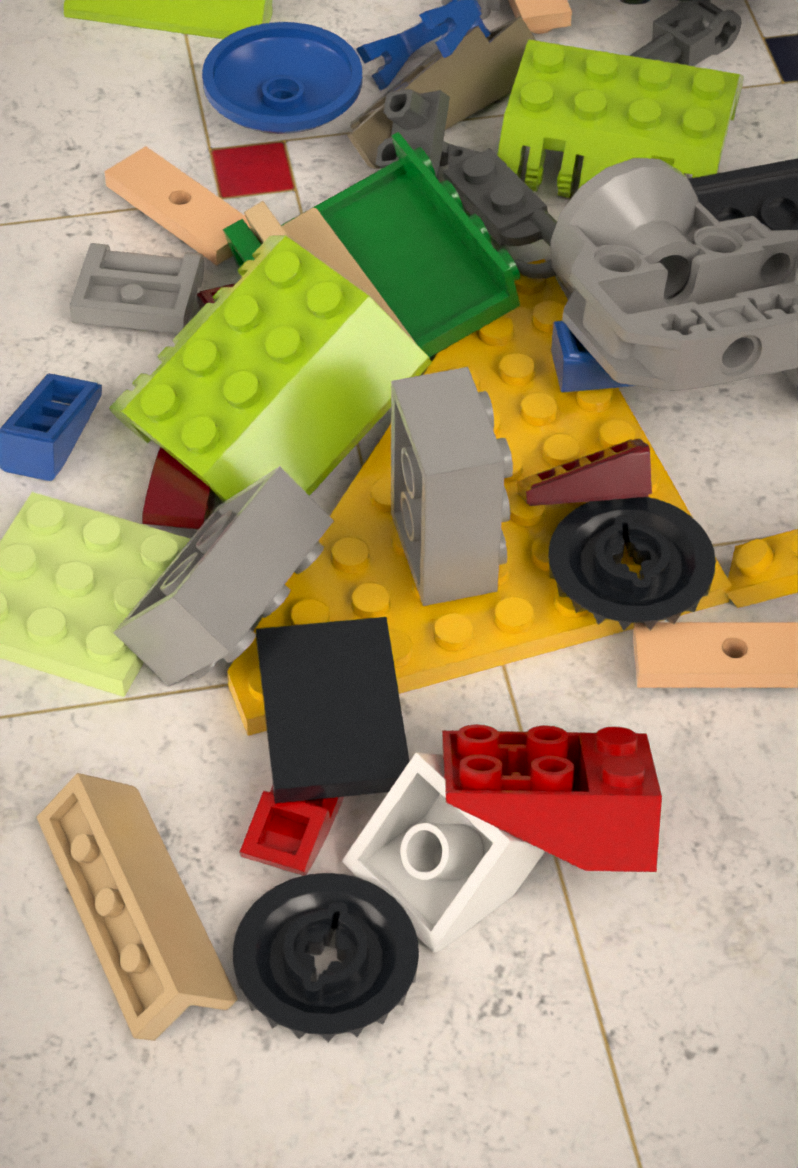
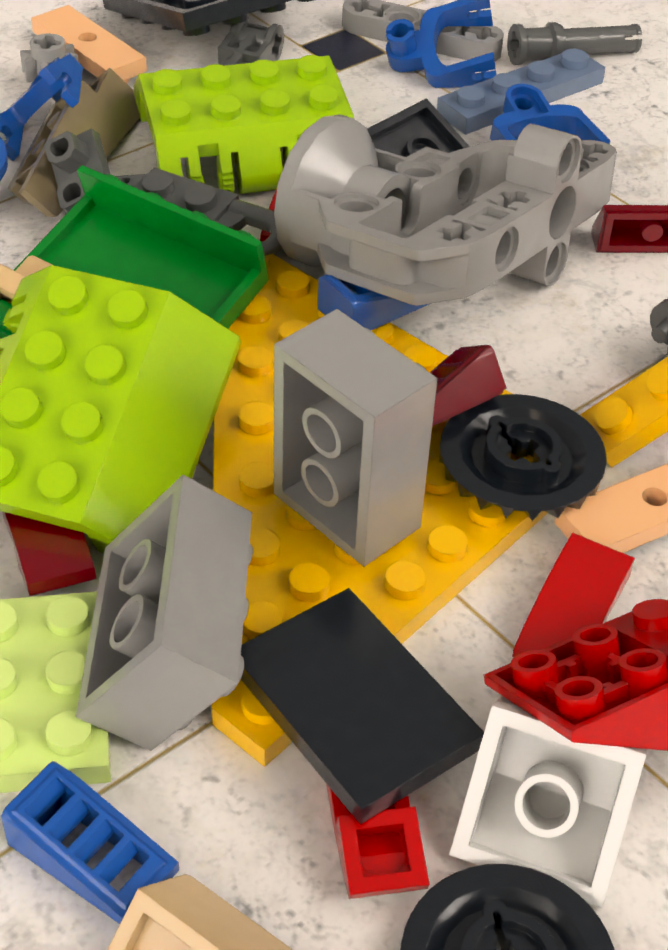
camera: 30 degrees left, 5 degrees down
(61, 693) = (52, 809): none -> blue slope
(601, 697) = (576, 593): none -> red slope

